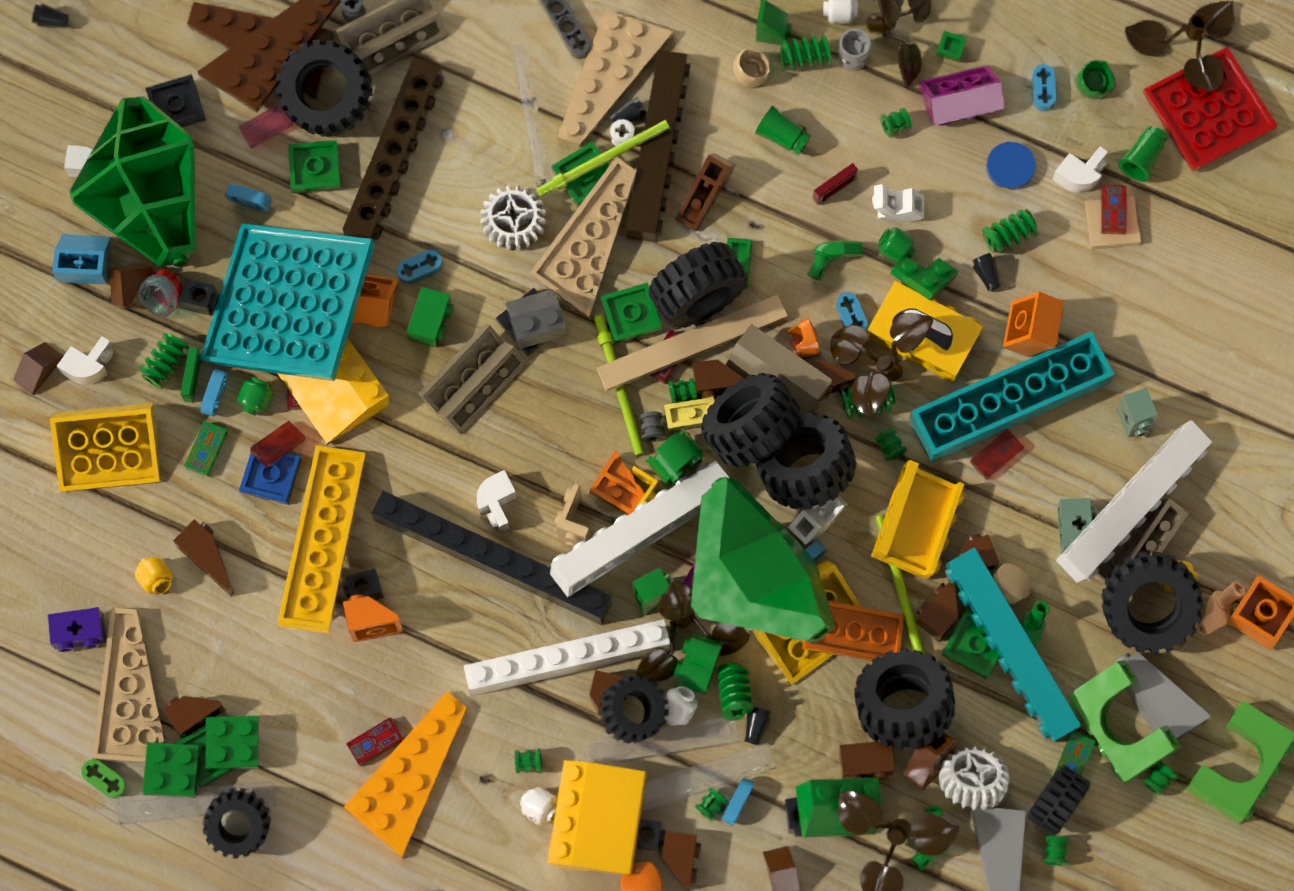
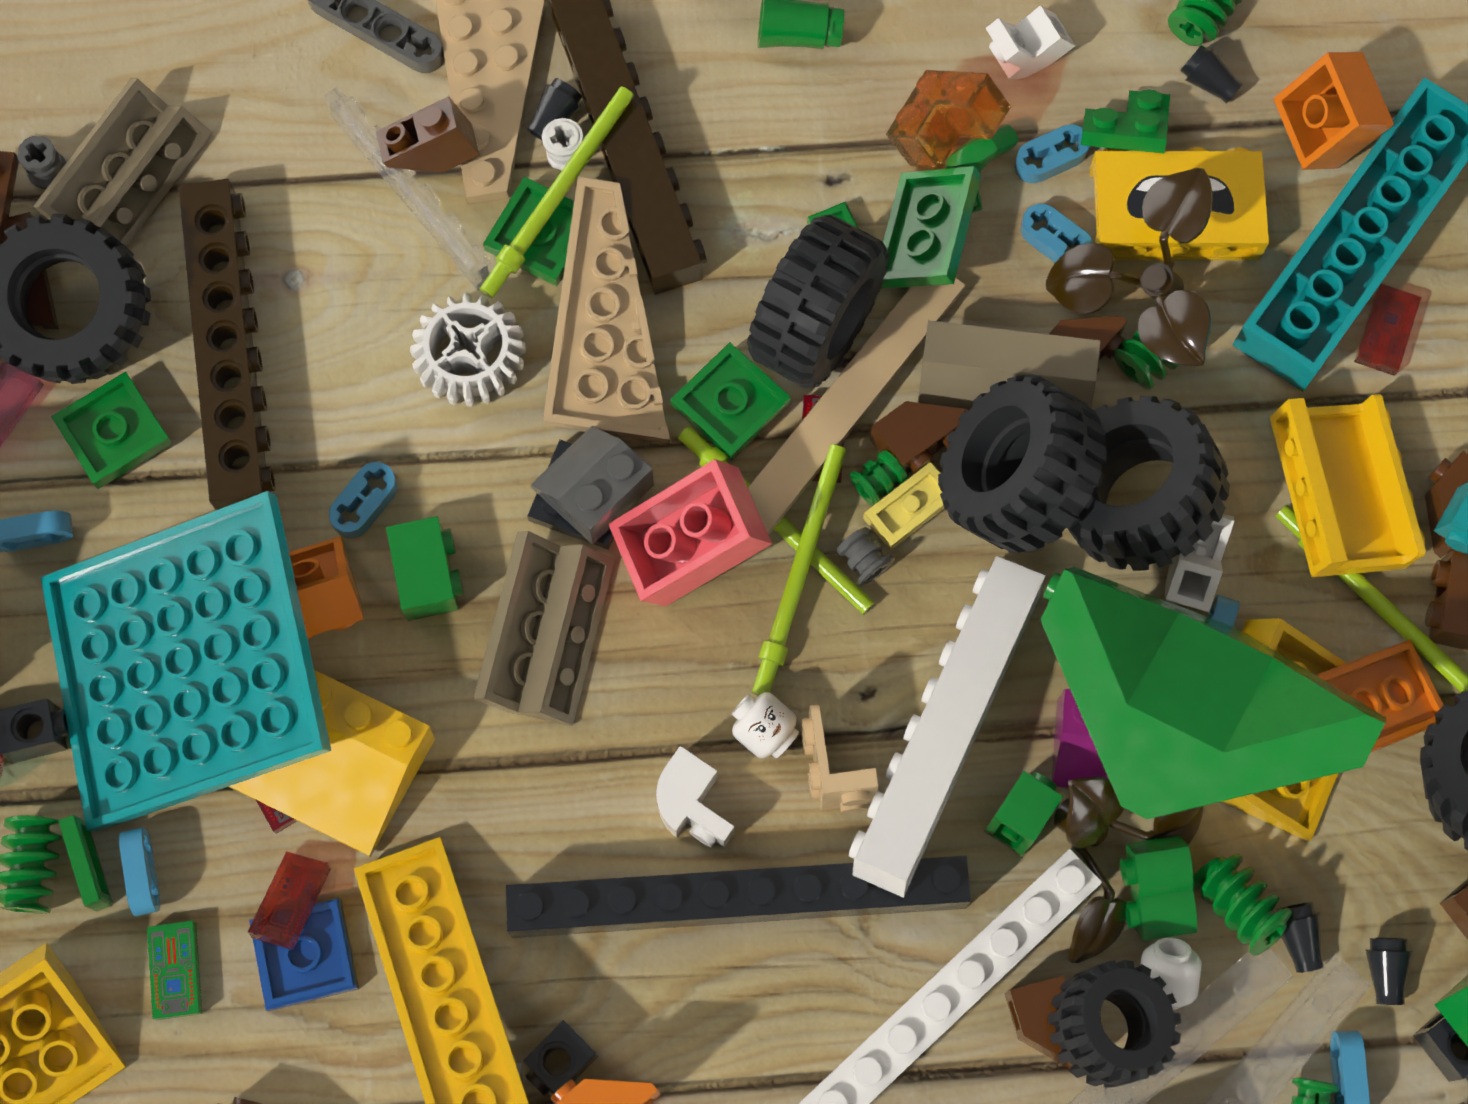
camera: 30 degrees left, 0 degrees up
(255, 396) = (211, 841): green head -> none
(552, 97) = (429, 139): none -> reddish brown slope
(552, 482) = (764, 725): none -> white head
(568, 368) = (690, 533): none -> coral brick
(579, 449) = (774, 651): none -> lime bar
(617, 486) = (867, 677): orange wing -> none
(648, 480) = (910, 642): yellow bracket -> none
(675, 457) = (932, 584): green brick -> none
(705, 191) = (735, 167): reddish brown slope -> none
(783, 275) = (929, 226): none -> green plate
(790, 763) = (1389, 969): none -> black cone
(805, 339) = (1015, 303): orange hair -> none
(827, 219) = (942, 111): none -> clear orange brick
(835, 184) = (920, 57): dark red tile -> none
(874, 276) = (1055, 161): none -> dark azure beam
(890, 444) = (1232, 395): green bush -> none
(896, 244) = (1060, 101): green head -> none

